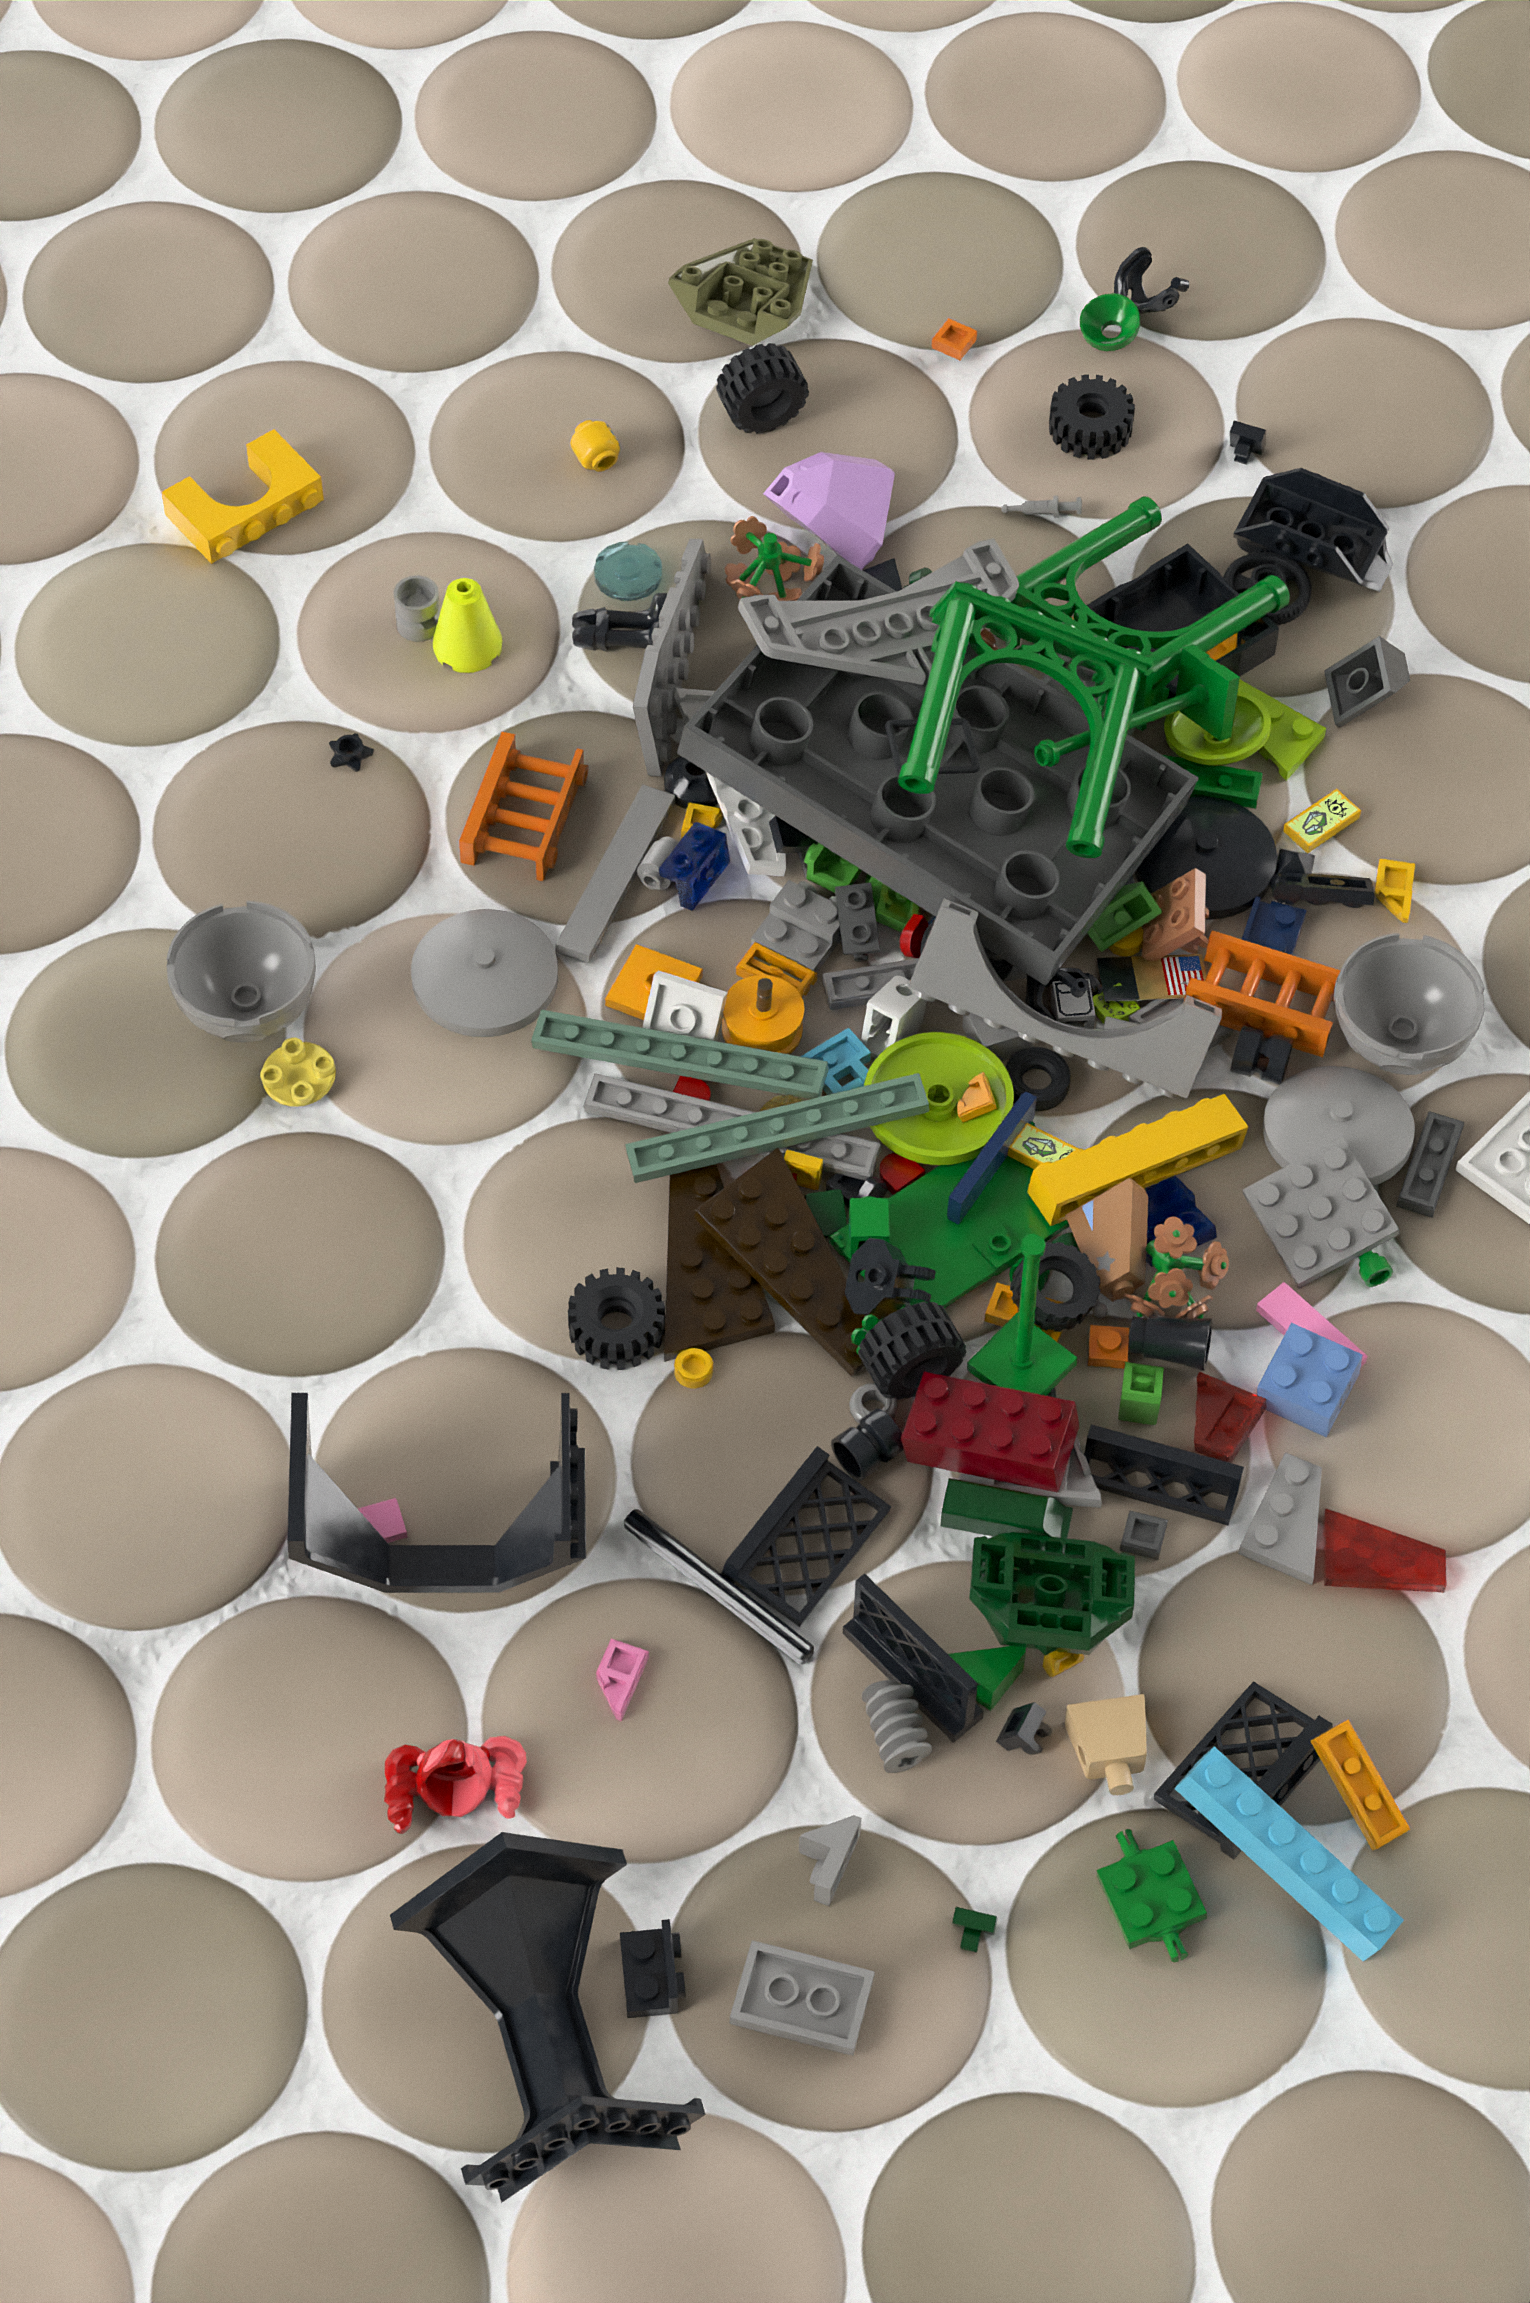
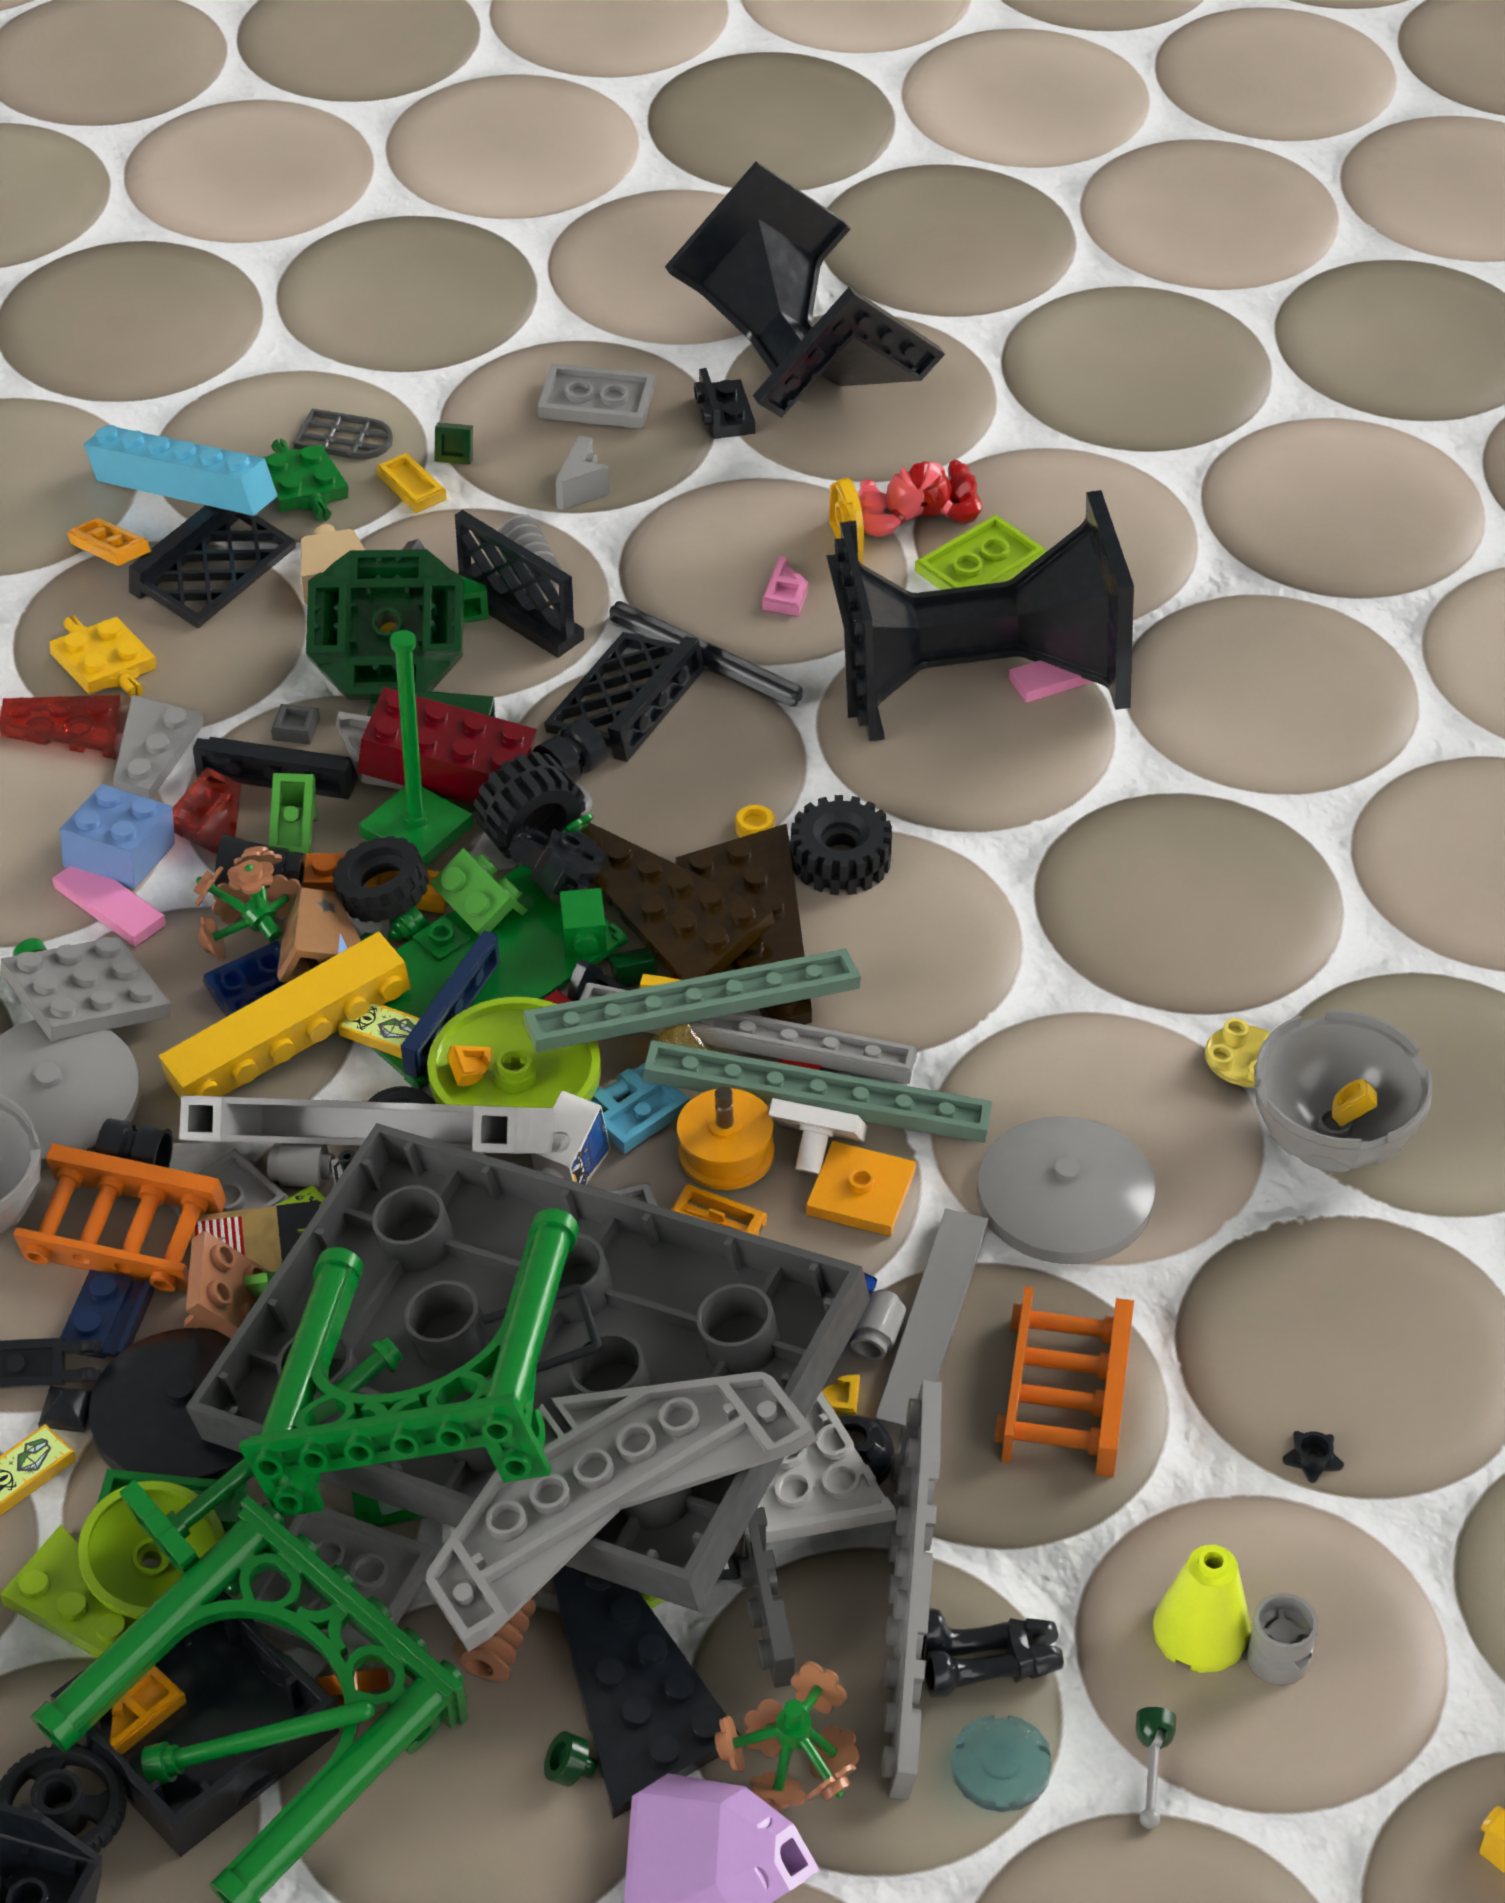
camera: 175 degrees right, 10 degrees down
(228, 985) = (1353, 1101): none -> yellow tile
(401, 1697) = (980, 556): none -> lime tile
(515, 571) = (1155, 1730): none -> hinge
(543, 1736) = (846, 507): none -> yellow tile
(962, 1272) = (476, 892): none -> bright green bracket
(1024, 1882) = (411, 482): none -> yellow tile
(1113, 1990) = (336, 427): none -> dark grey window
(1196, 600) = (167, 1761): none -> green piece
(1350, 1642) = (103, 655): none -> yellow plate

